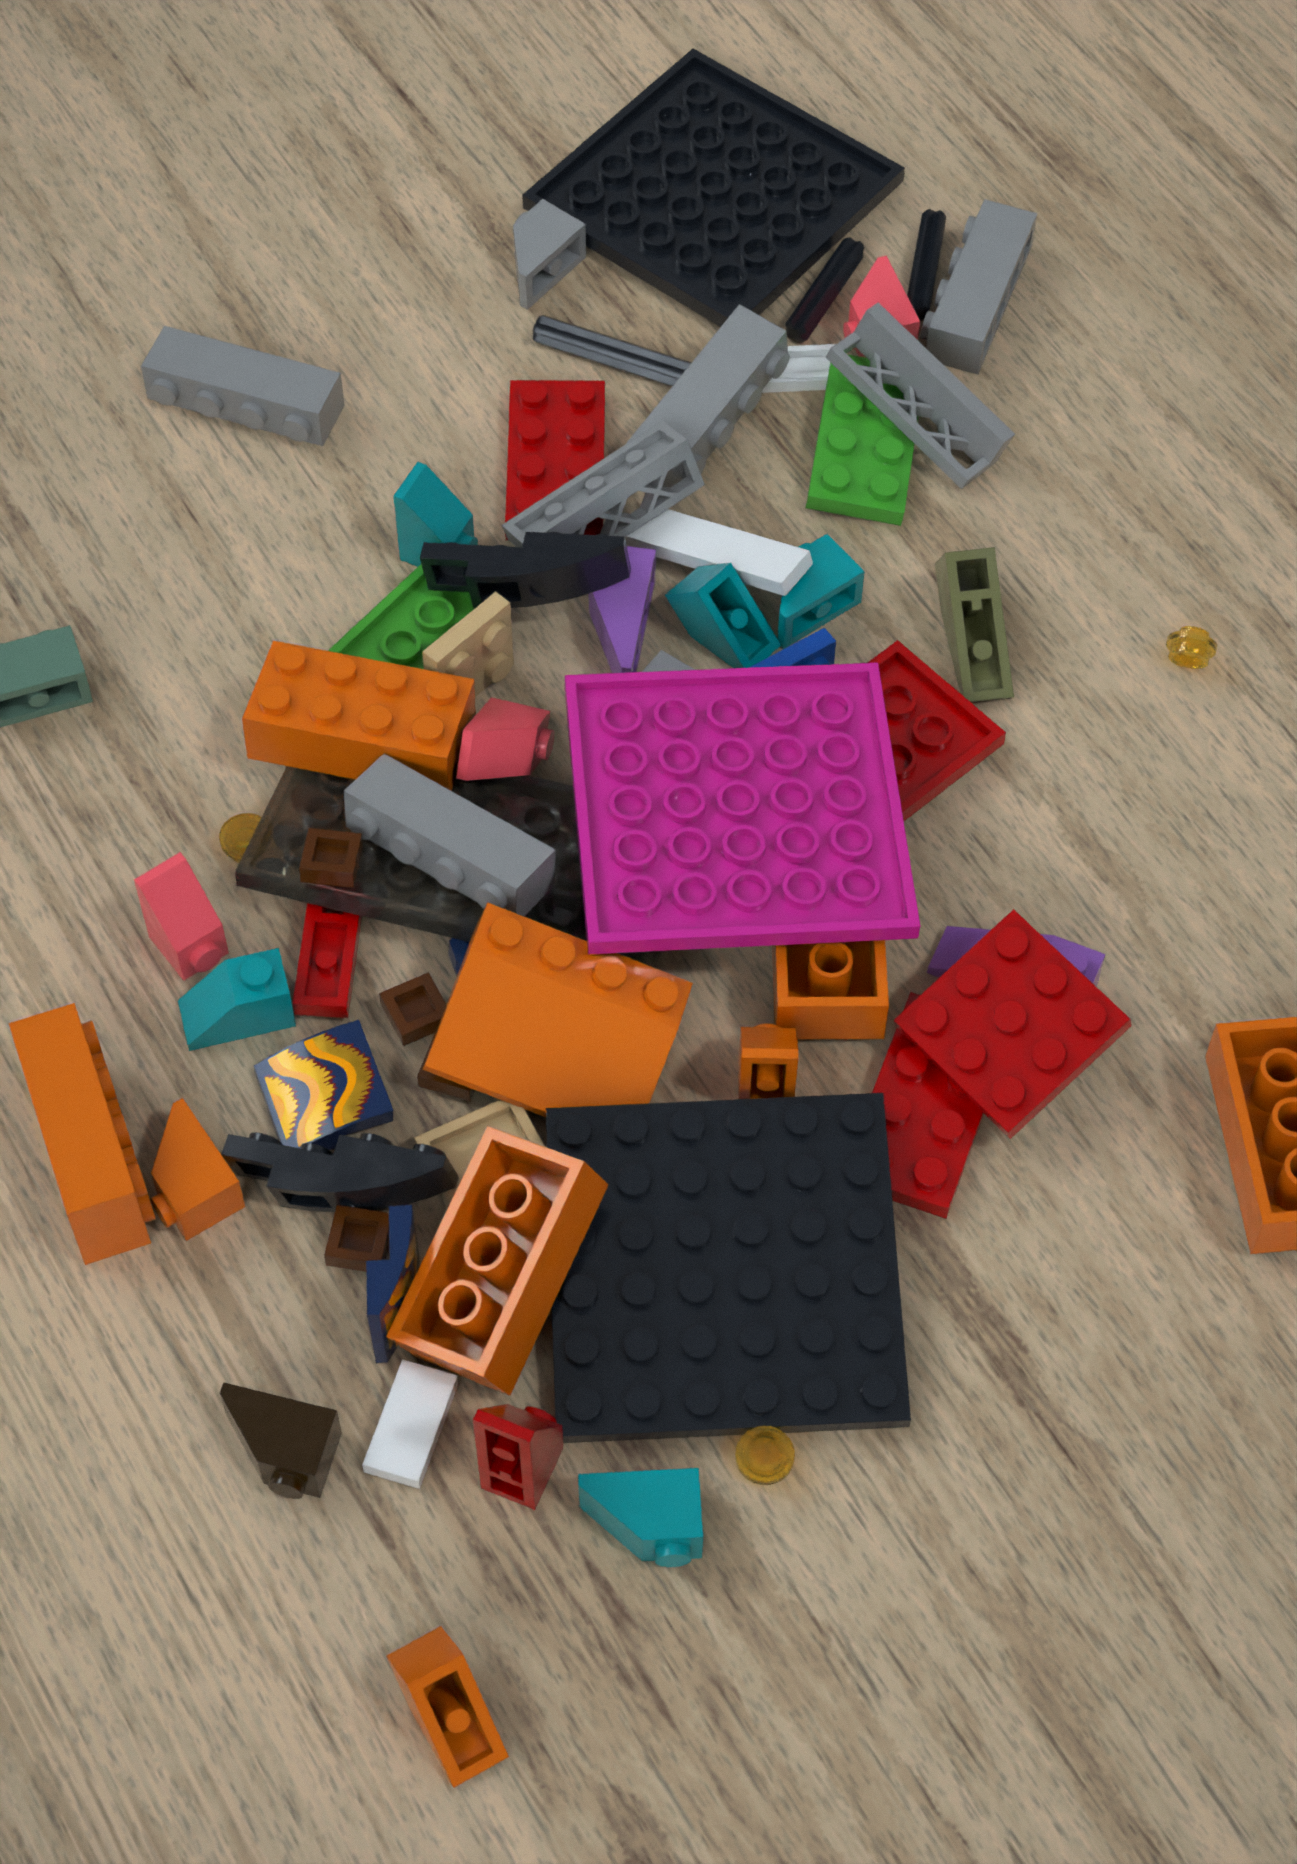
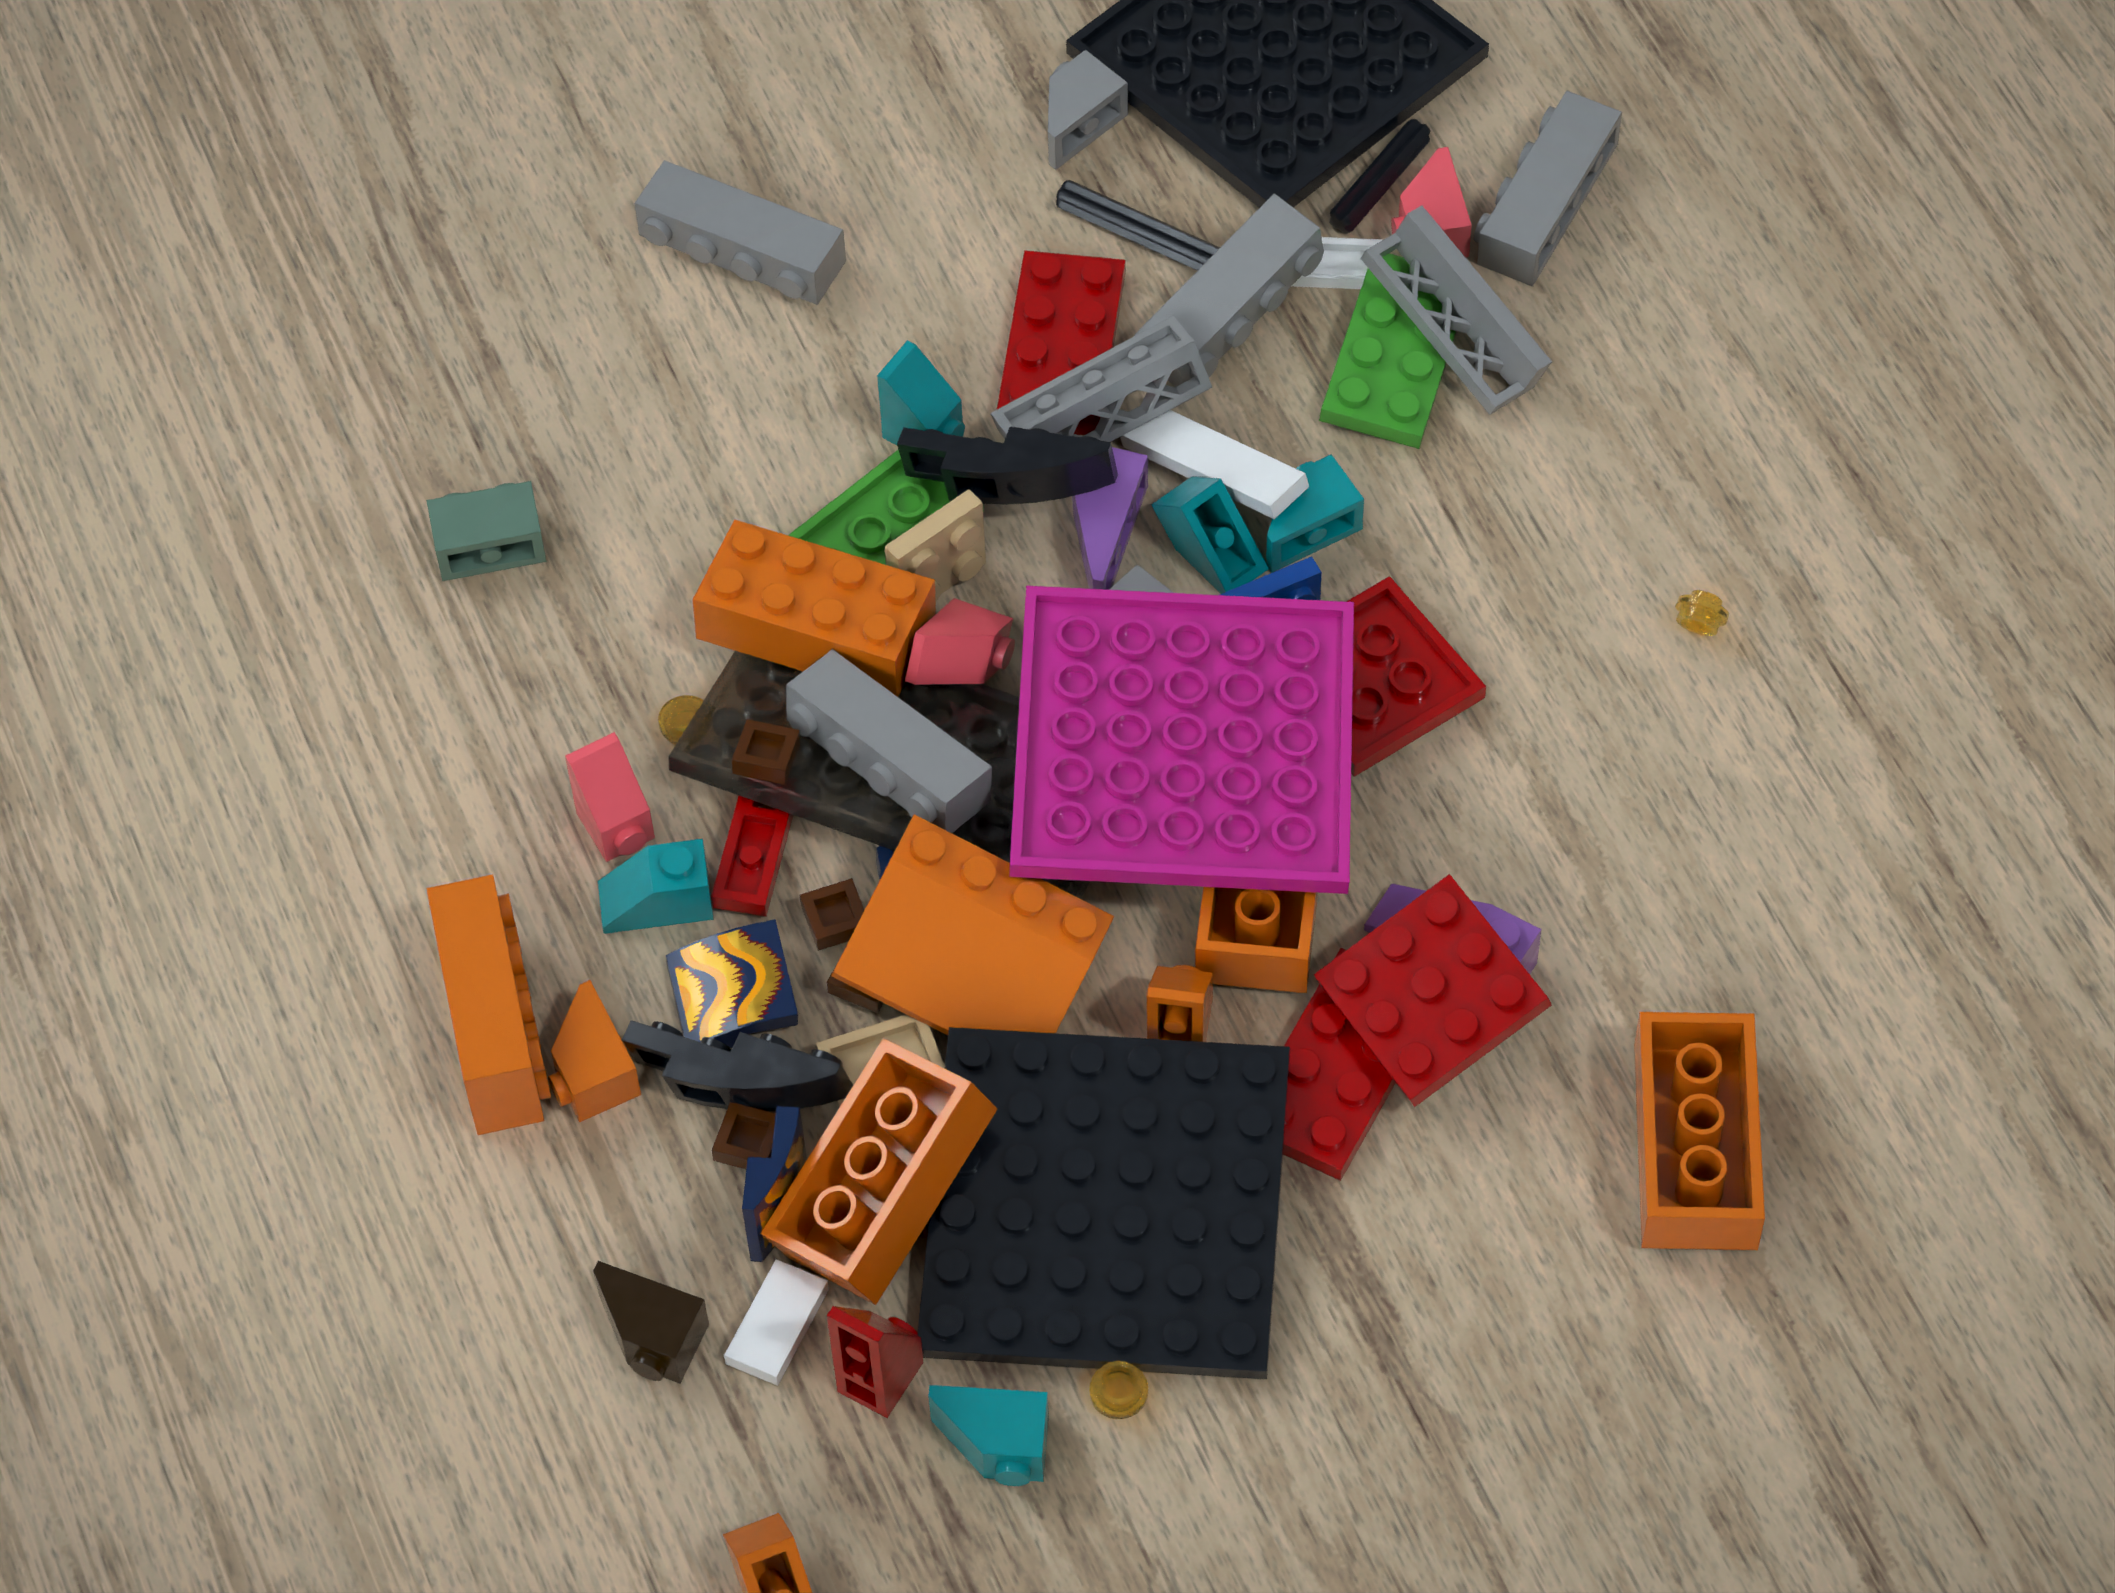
camera: 10 degrees right, 0 degrees up
(926, 261) = (1495, 155): black axle -> none
(975, 623) = (1475, 567): olive slope -> none

